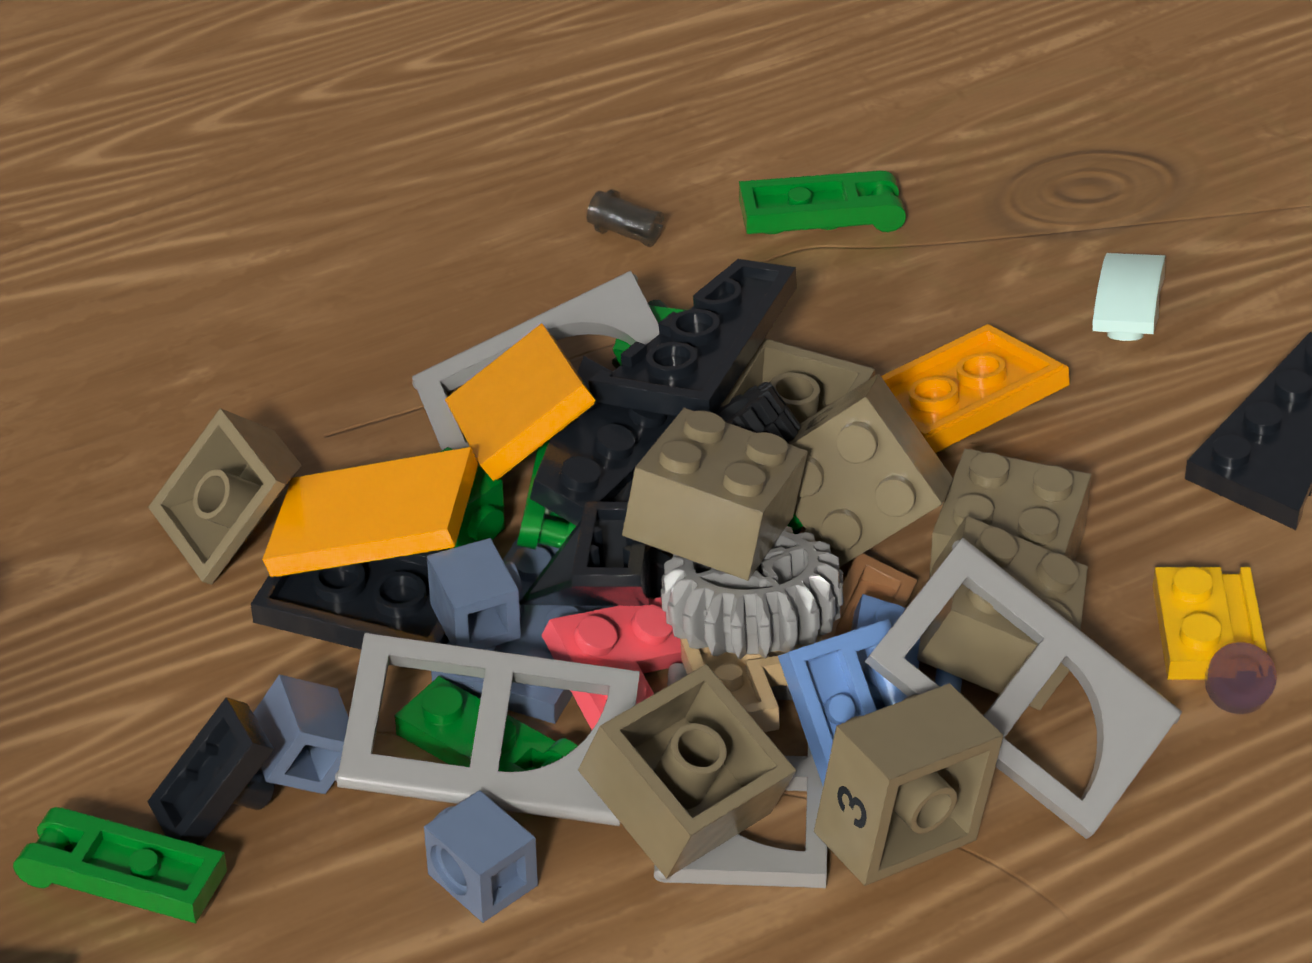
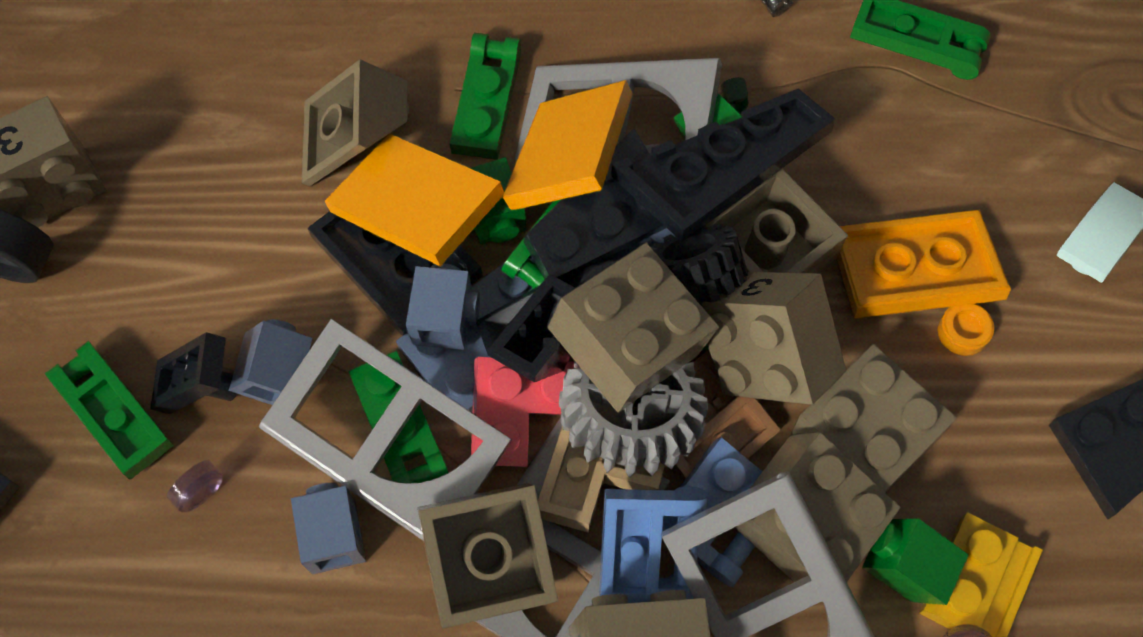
camera: 30 degrees right, 25 degrees up
(289, 885) = (195, 486): none -> tile
(368, 418) = (485, 97): none -> green plate
(1045, 429) = (965, 329): none -> light orange tile
(1134, 615) = (916, 561): none -> green brick

